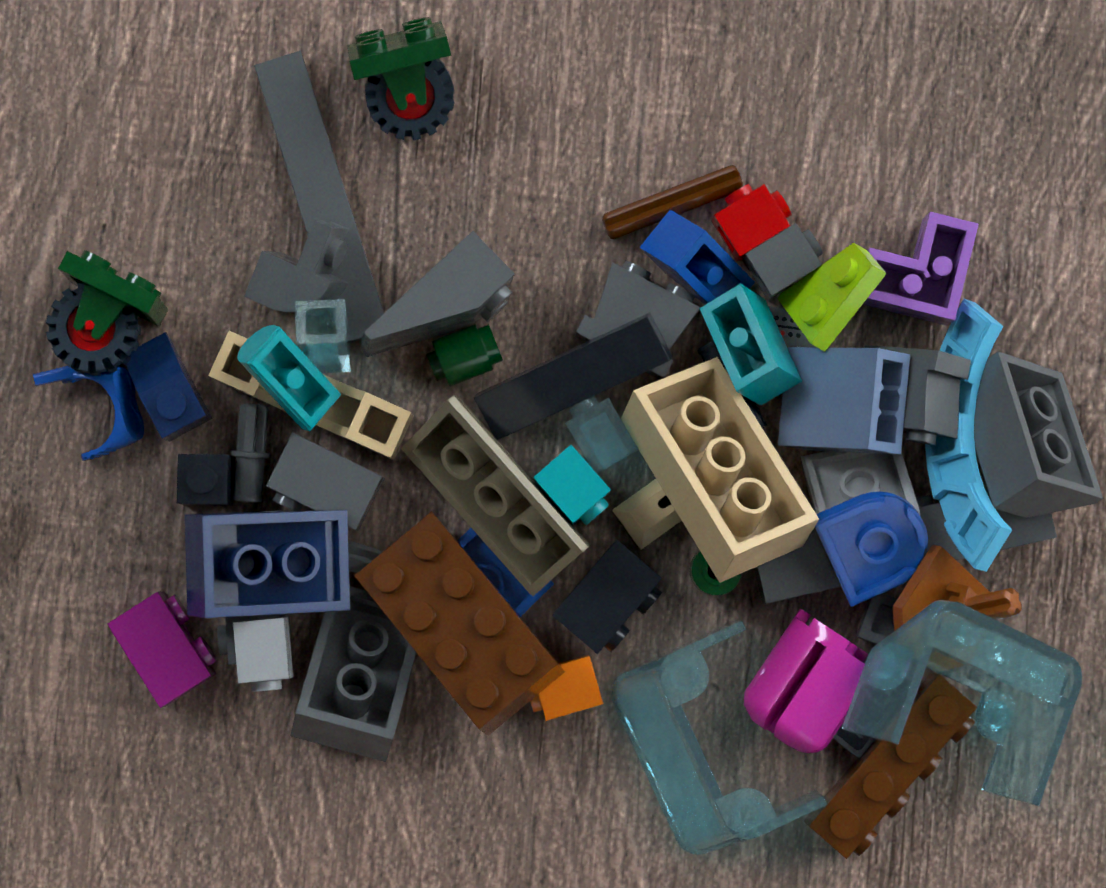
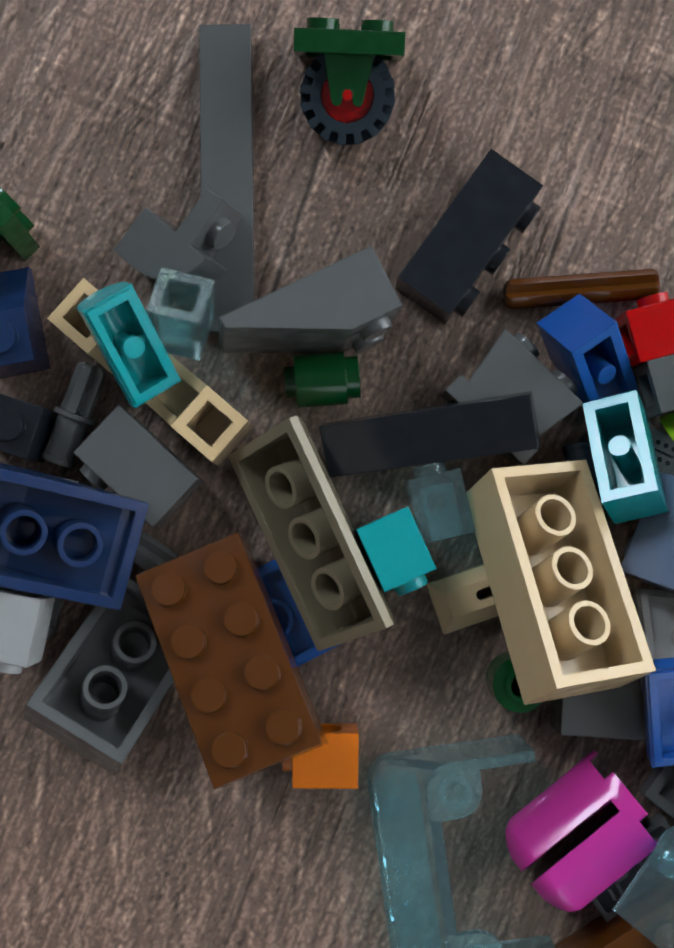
camera: 20 degrees right, 0 degrees up
(558, 188) = (470, 238): none -> black brick
(608, 598) = (395, 676): black brick -> none

